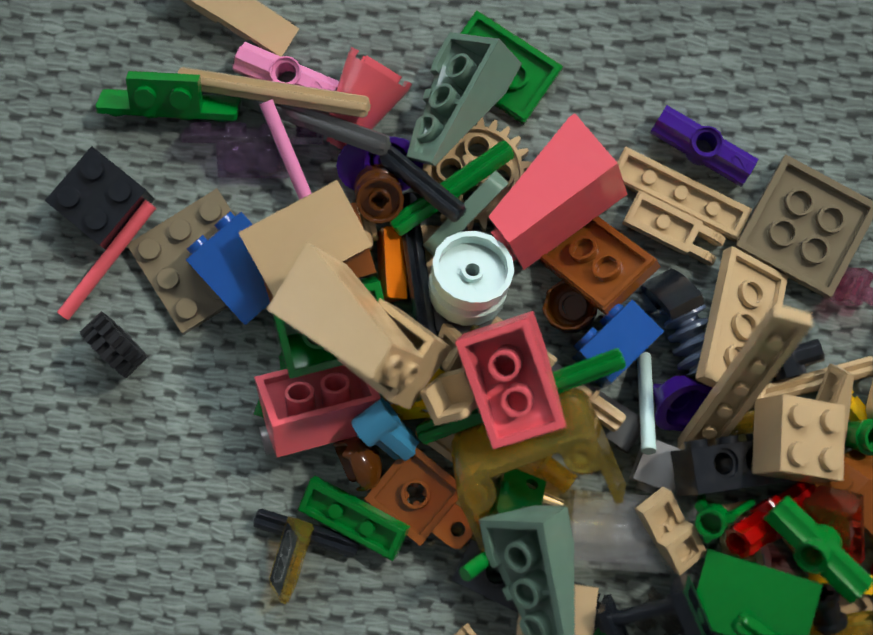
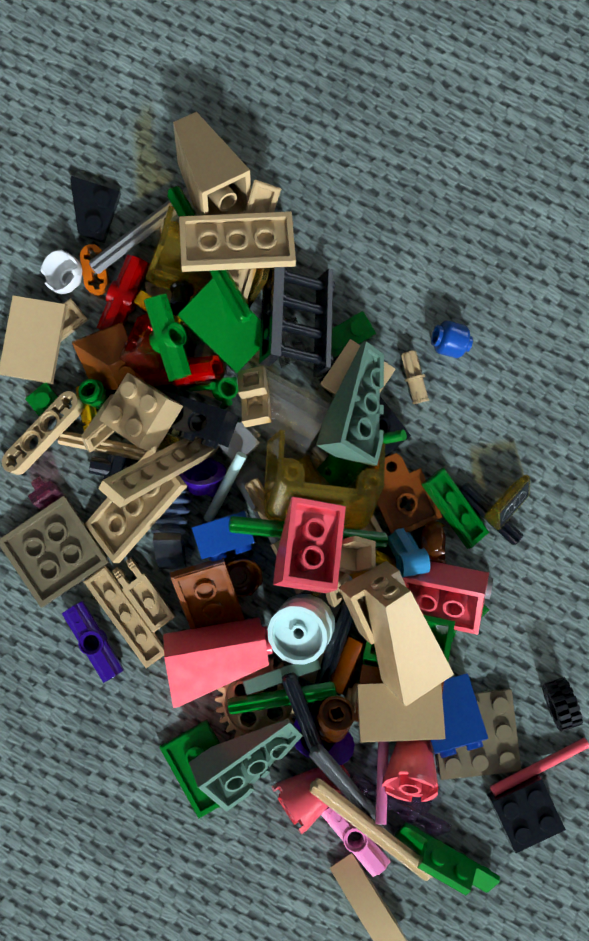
camera: 150 degrees left, 5 degrees up
(258, 178) = (411, 771): none -> coral cone

